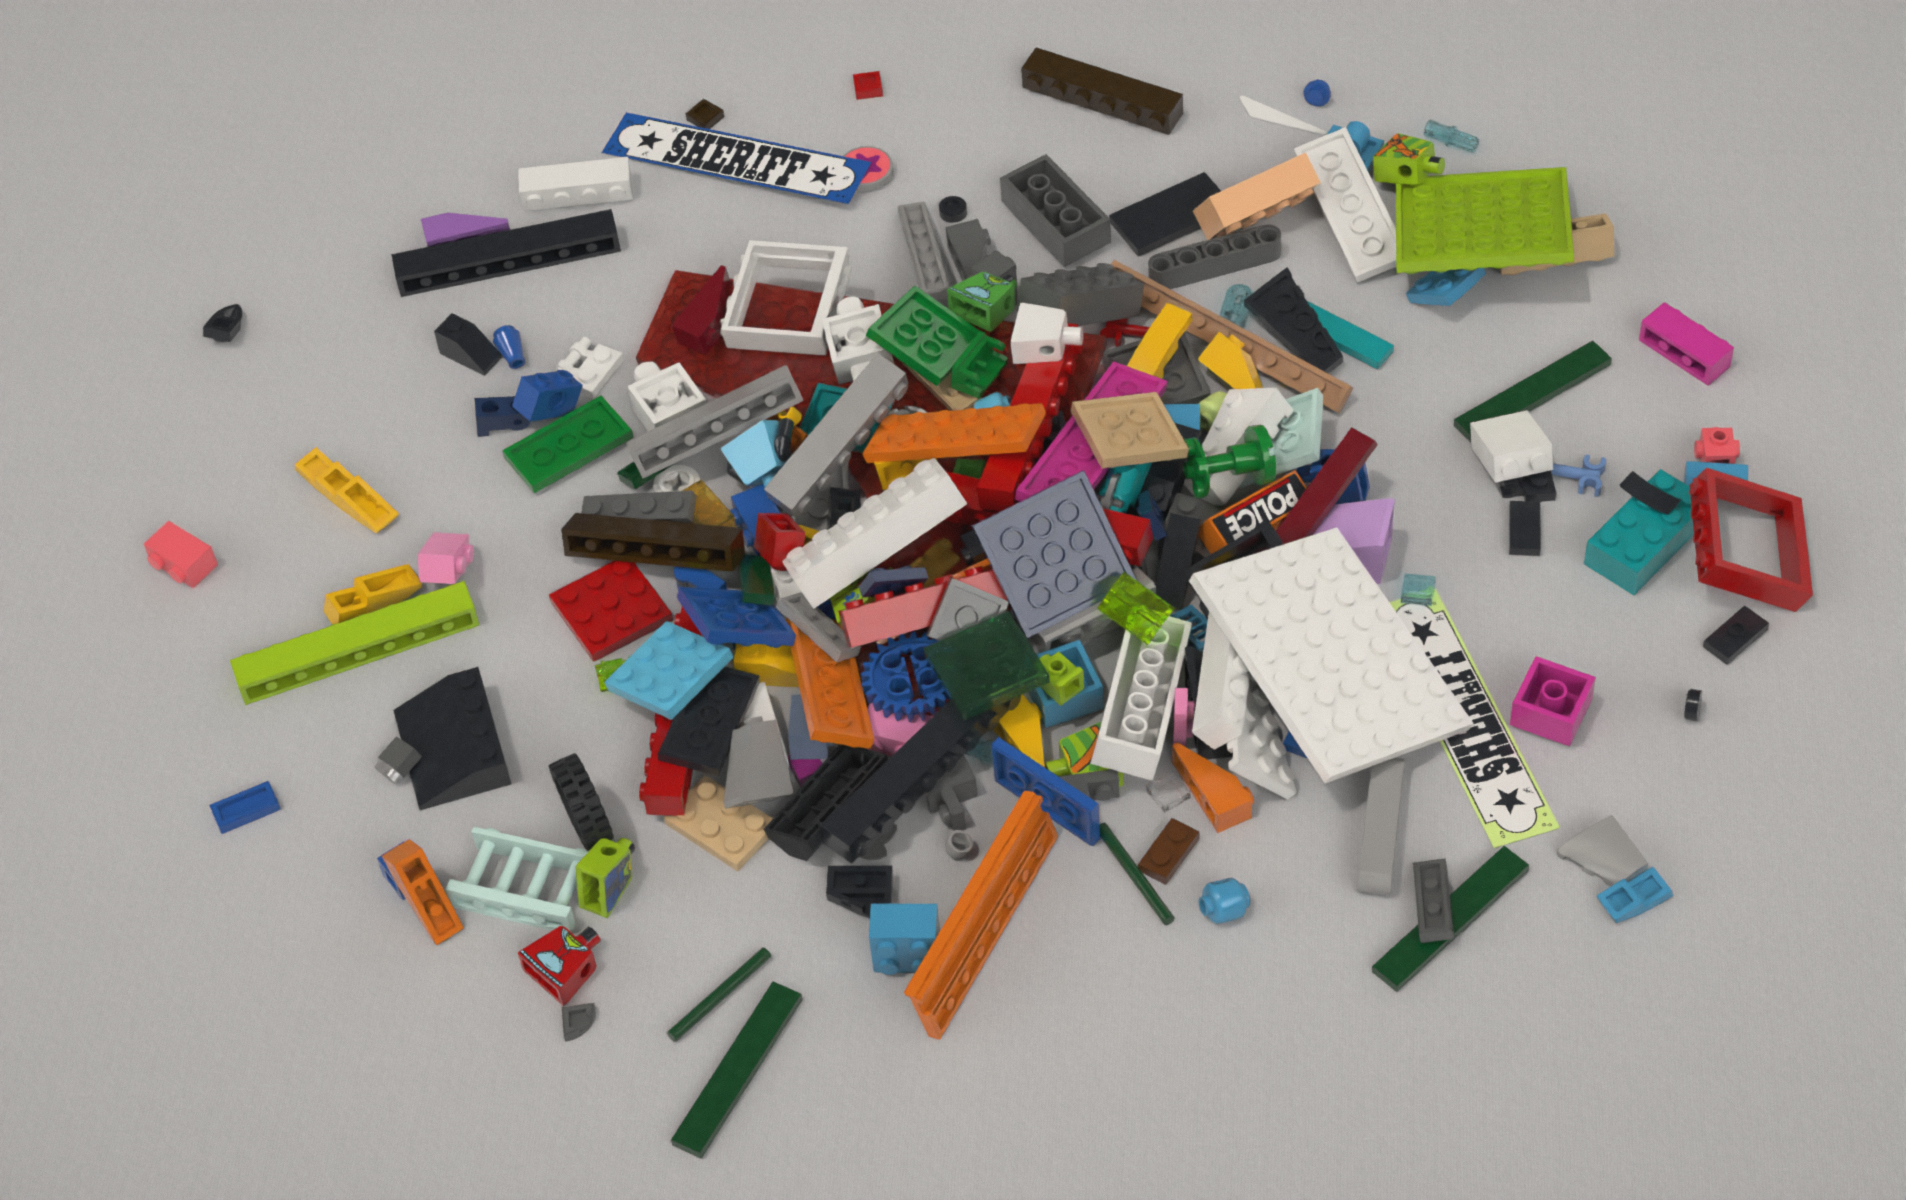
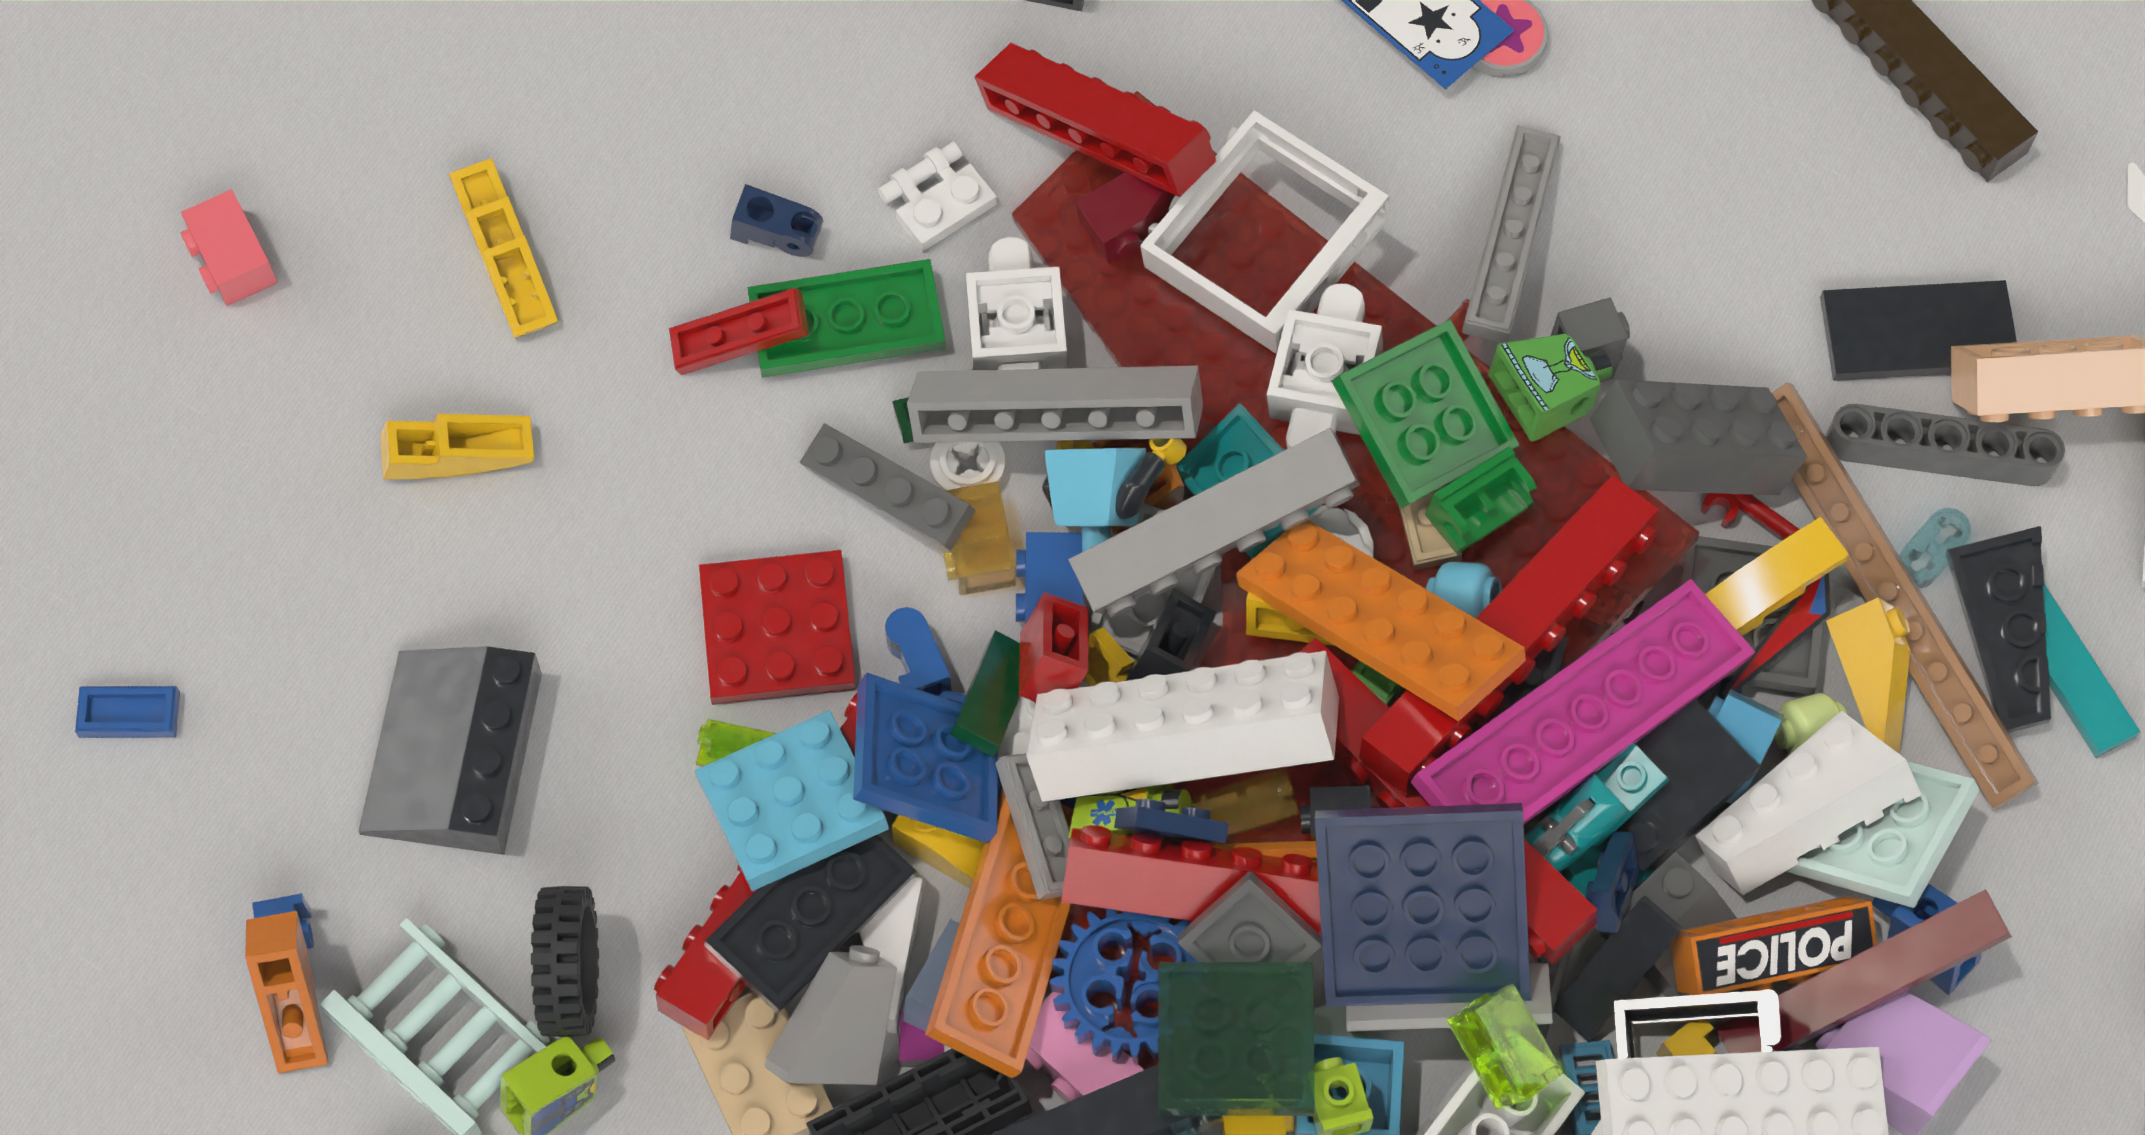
camera: 20 degrees right, 15 degrees up
(354, 642) = (395, 514): lime brick -> none
(397, 760) = (362, 743): dark grey piece -> none
(444, 558) = (577, 439): bright pink brick -> none
(466, 344) = (783, 78): black slope -> none
(509, 344) = (843, 108): blue cone -> none
(509, 472) = (738, 331): none -> red tile
(547, 395) = (849, 229): blue brick -> none
(653, 542) = (880, 559): dark brown brick -> none
(660, 282) = (1096, 119): none -> red brick
(952, 209) = (1596, 166): black tile -> none
(967, 245) = (1583, 257): dark grey slope -> none
(1042, 334) = (1591, 510): white torso -> none
(1055, 210) = (1744, 249): dark grey brick -> none
(1129, 430) = (1644, 734): tan plate -> none
(1182, 364) = (1796, 622): none -> sticker
(1239, 458) = (1791, 854): green piece -> none

